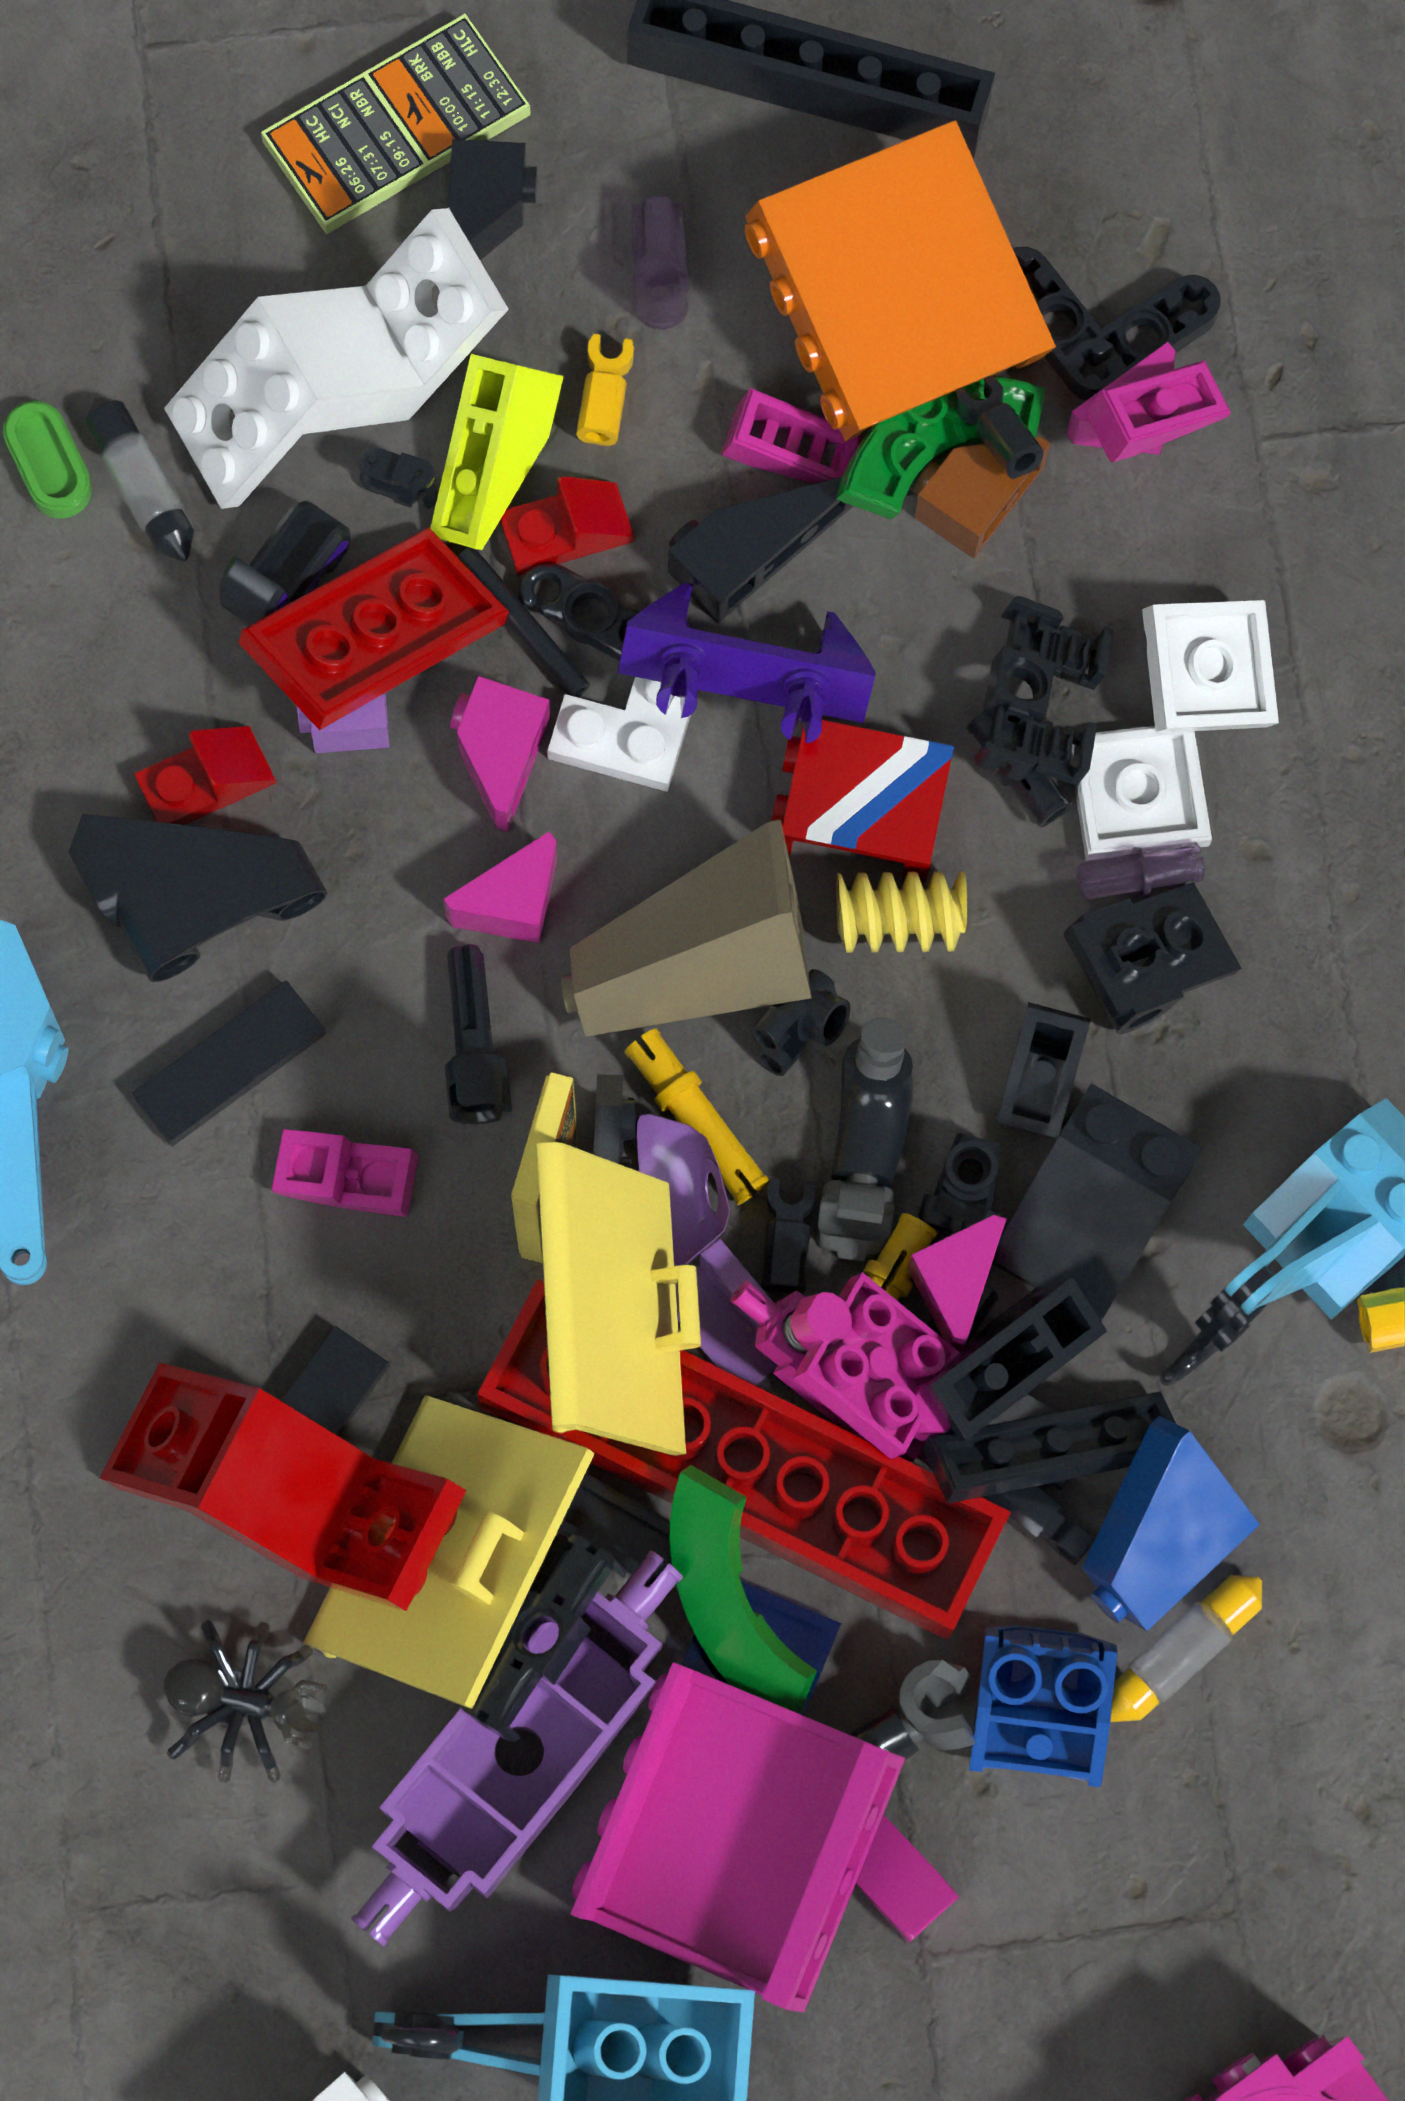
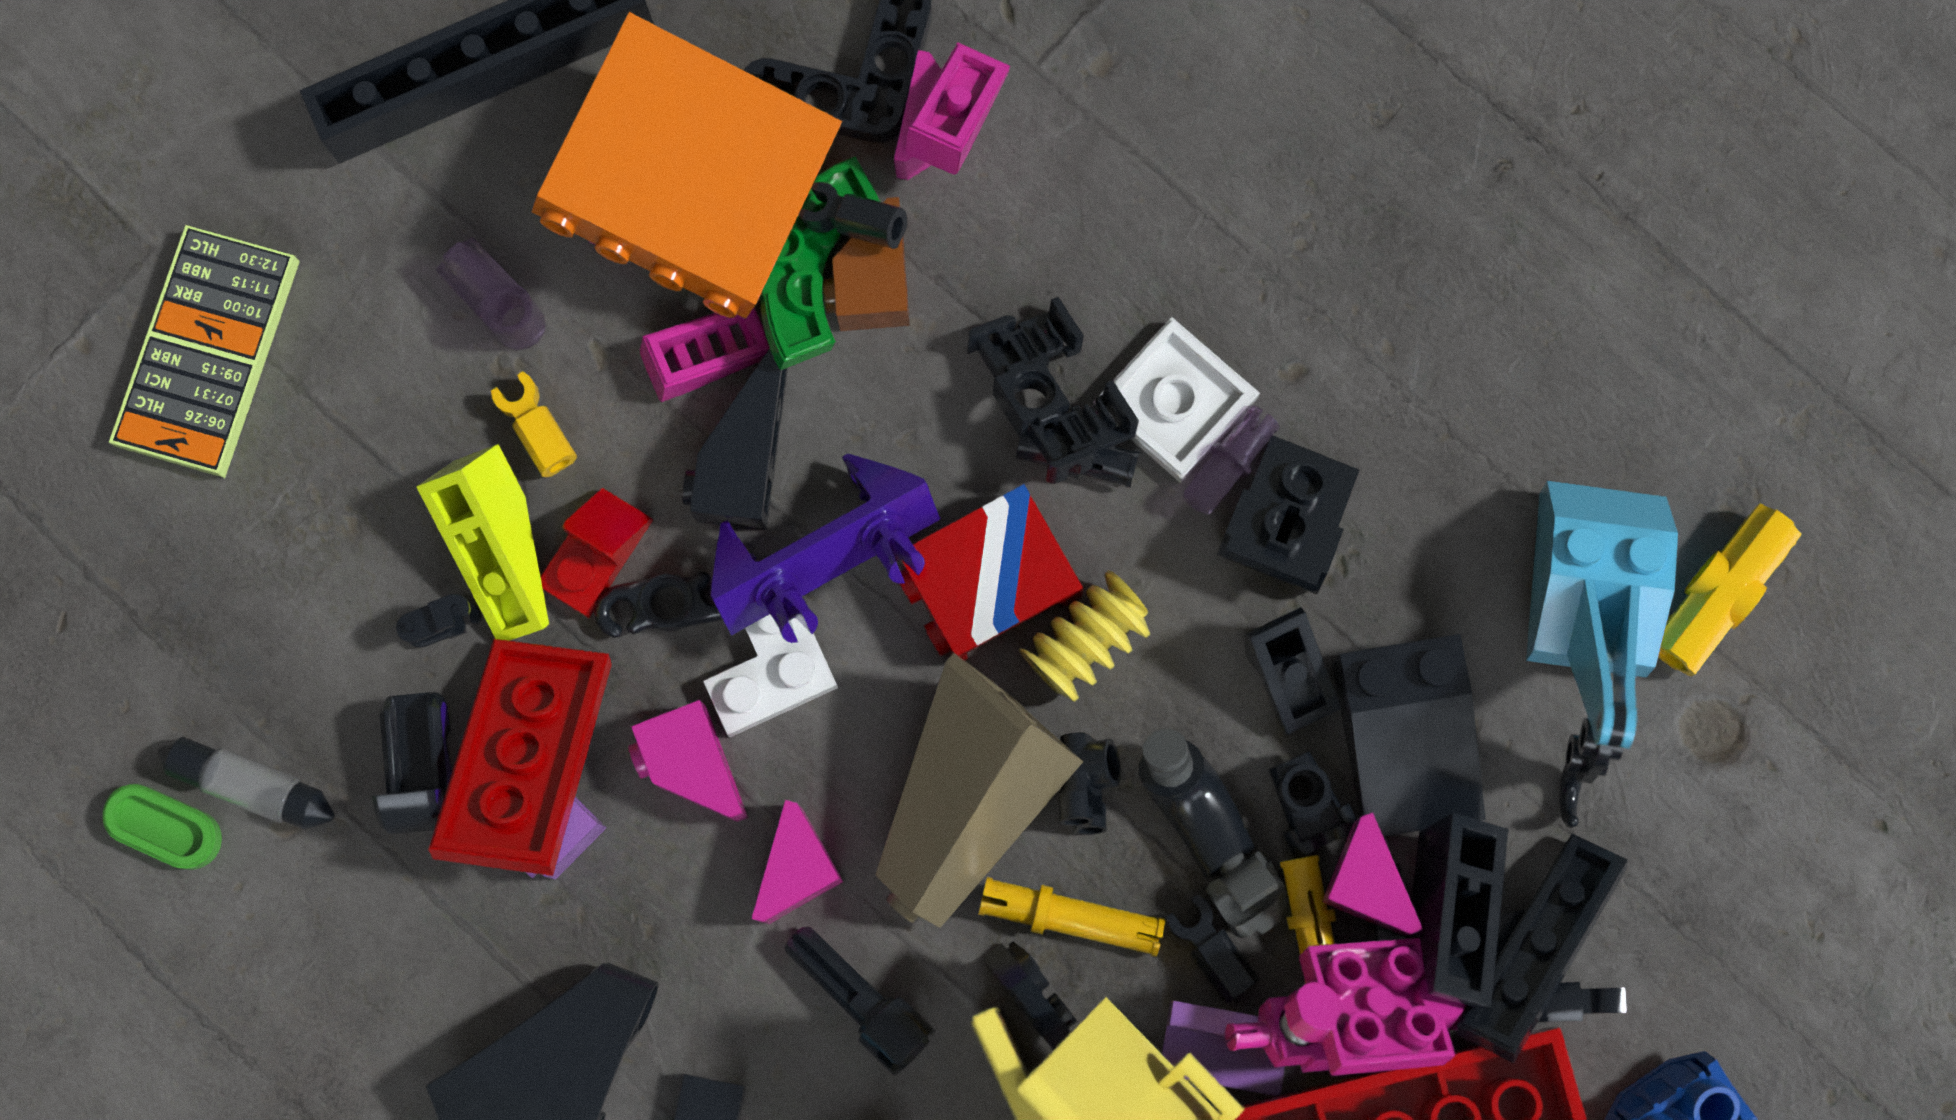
camera: 30 degrees left, 5 degrees up
(207, 777) = (490, 970): red slope -> none
(335, 358) = (316, 574): white bracket -> none
(489, 190) = (322, 355): black slope -> none
(527, 627) = (630, 652): black piece -> none
(684, 1160) = (1090, 969): medium lavender piece -> none
(1164, 1528) = (1669, 939): slope -> none
(1185, 1647) = (1750, 1006): piece -> none
(1210, 666) = (1152, 267): white hinge -> none

